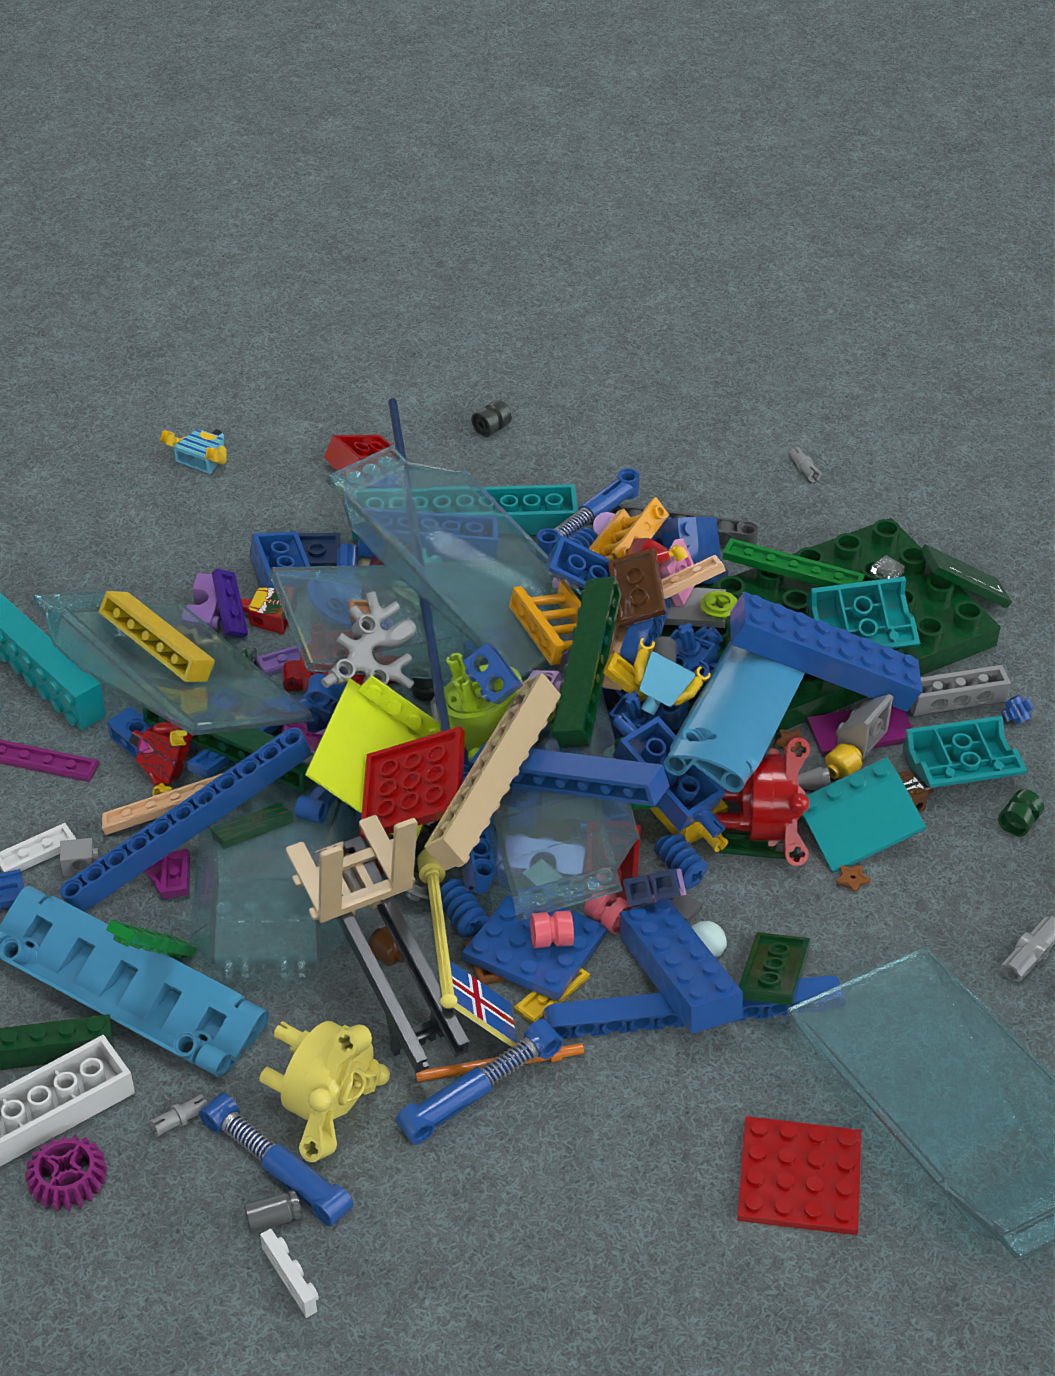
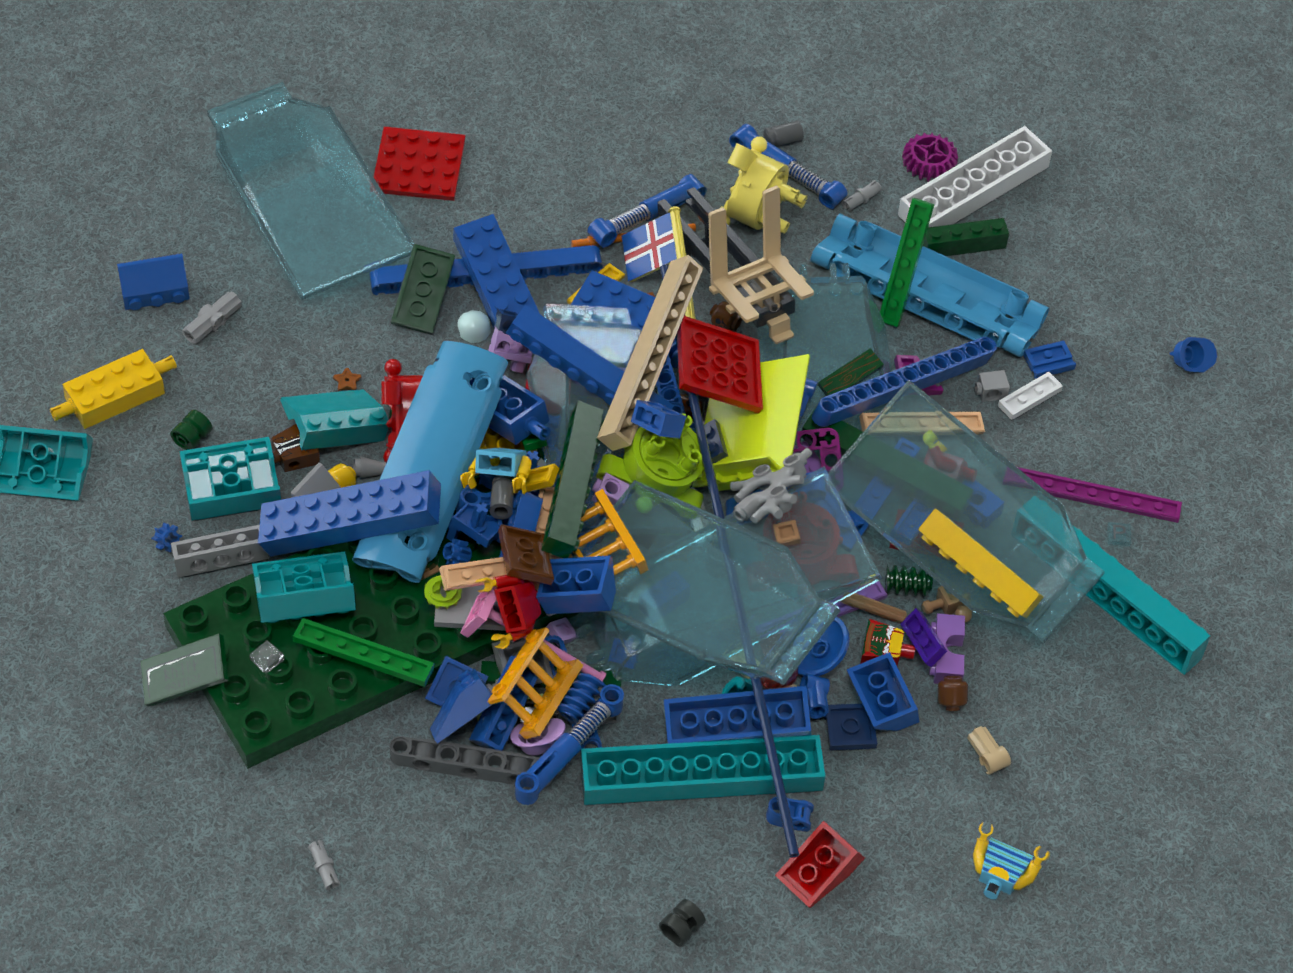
camera: 175 degrees right, 10 degrees up
(188, 529) = (990, 754): none -> tan piece
(204, 562) = (952, 692): none -> reddish brown head
(268, 641) = (875, 607): none -> medium nougat axle
(290, 1272) = (765, 98): white plate -> none
(551, 929) = (603, 296): coral wheel -> none

